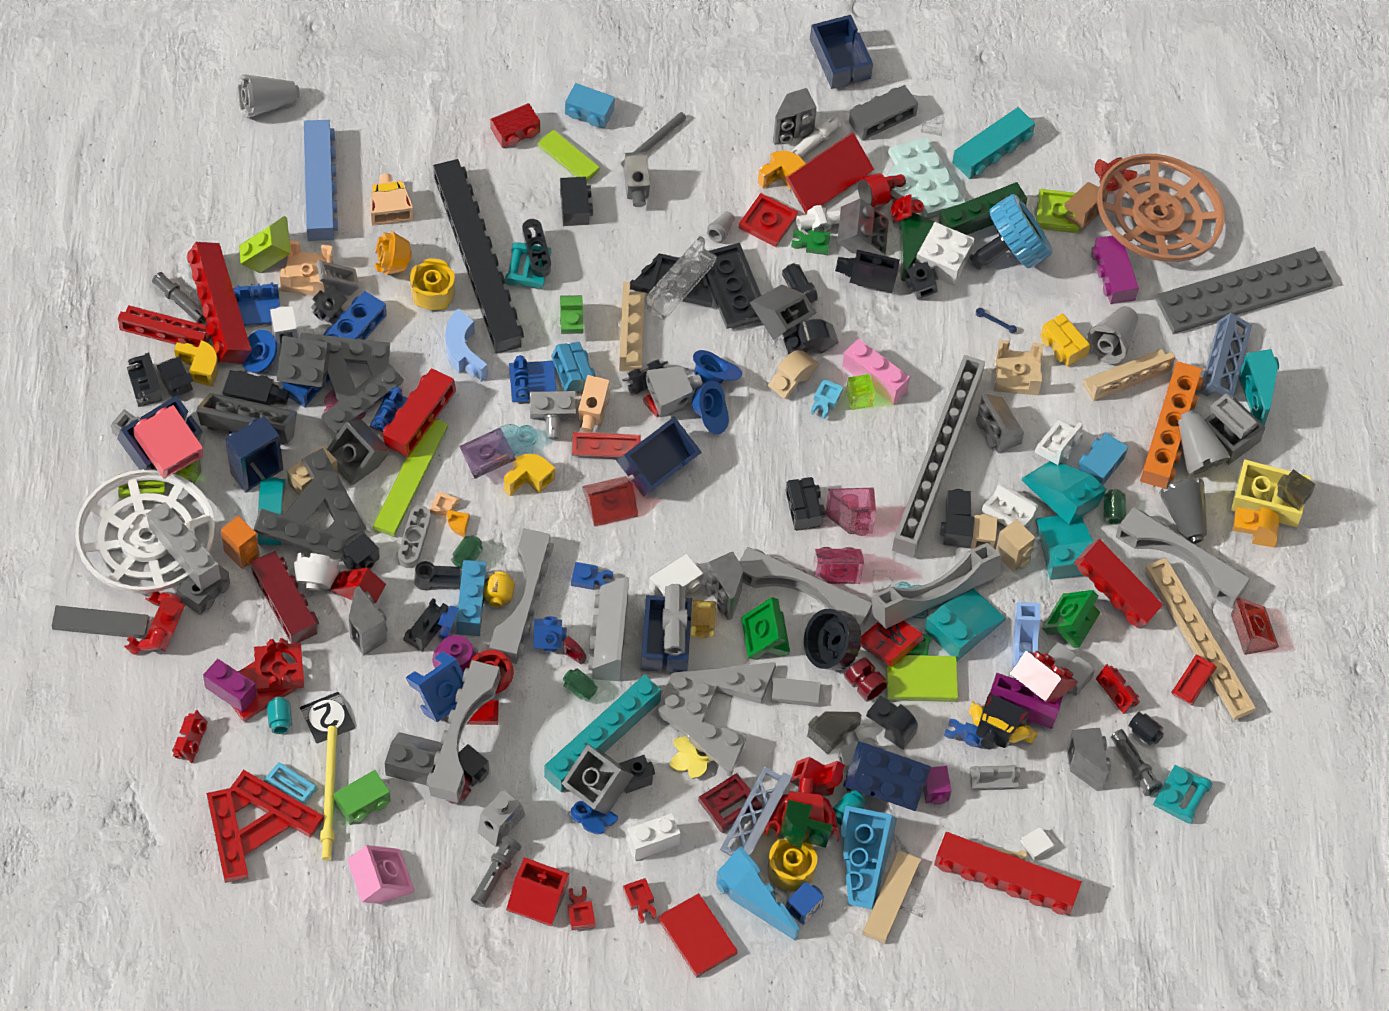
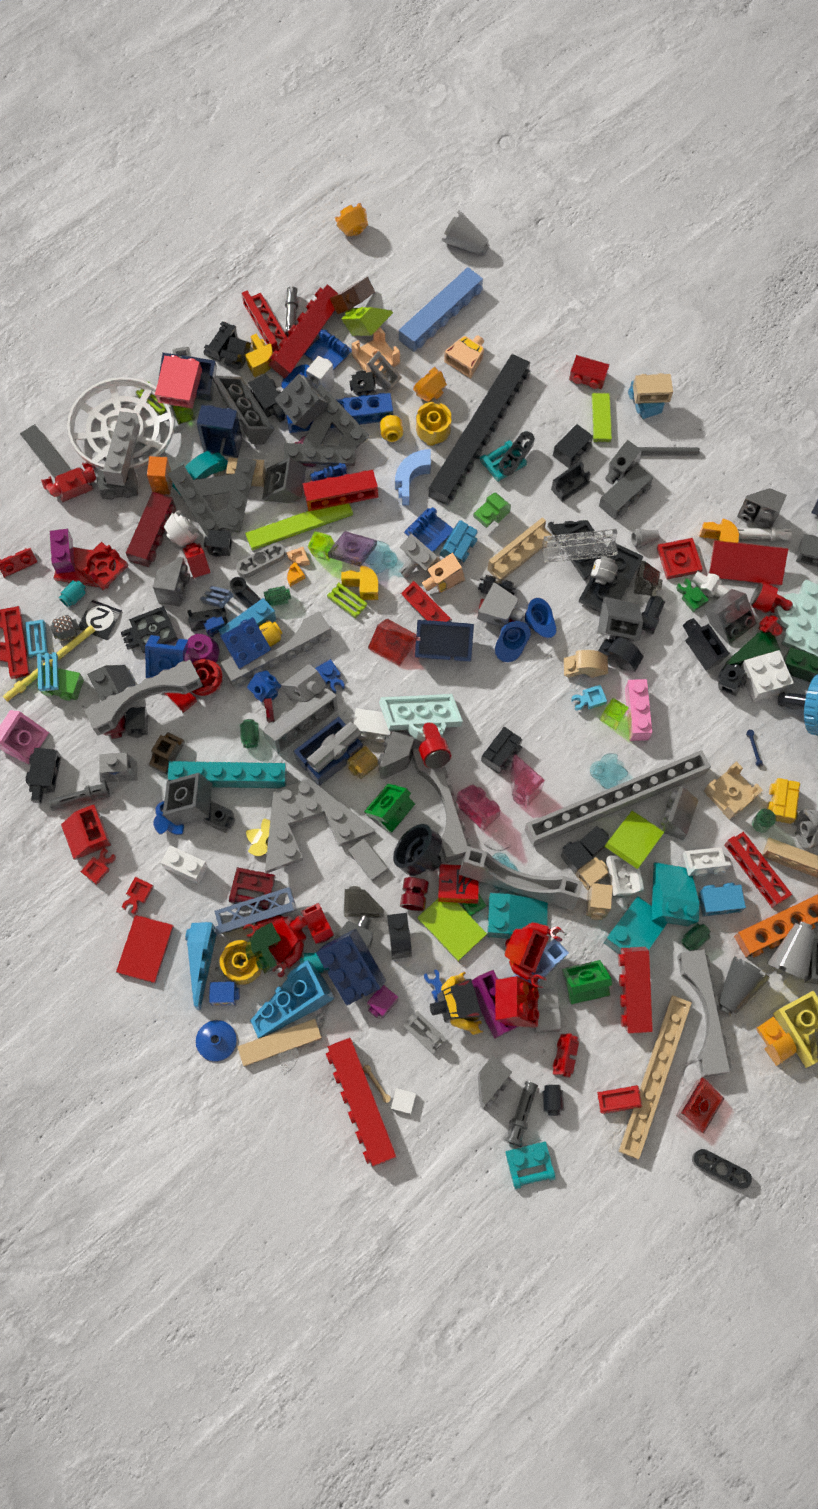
camera: 50 degrees right, 10 degrees up
(144, 166) = (352, 220): none -> light orange cone
(228, 235) = (352, 295): none -> reddish brown slope
(310, 749) = (64, 628): none -> dark grey head
(331, 781) = (47, 657): none -> medium azure tile
(386, 682) = (150, 623): none -> black piece
(398, 321) = (391, 428): none -> yellow head
(417, 595) = (219, 594): none -> sand blue tile
(439, 882) = (42, 772): none -> black hinge
(459, 473) = (320, 545): none -> clear neon green brick
(496, 607) = (245, 642): none -> blue hinge
(528, 765) = (165, 750): none -> dark brown brick
(529, 499) = (363, 604): none -> lime tile
(583, 598) = (306, 683): none -> light grey torso
(594, 91) = (652, 388): none -> tan brick
(607, 234) = (570, 482): none -> black hinge
(664, 202) = (626, 492): none -> dark grey brick
(722, 529) = (426, 721): none -> light aqua plate
(725, 281) = (604, 570): none -> light grey head
(765, 260) = (647, 580): none -> clear smoke slope
(839, 956) = (221, 1049): none -> blue dish
(907, 441) = (610, 771): none -> clear light blue plate
(988, 474) = (634, 839): none -> lime tile
(1004, 629) = (526, 949): none -> red torso
(1067, 369) = (763, 820): none -> clear green brick
(1102, 413) = (755, 872): none -> red fence
(1325, 650) = (738, 1170): none -> black beam

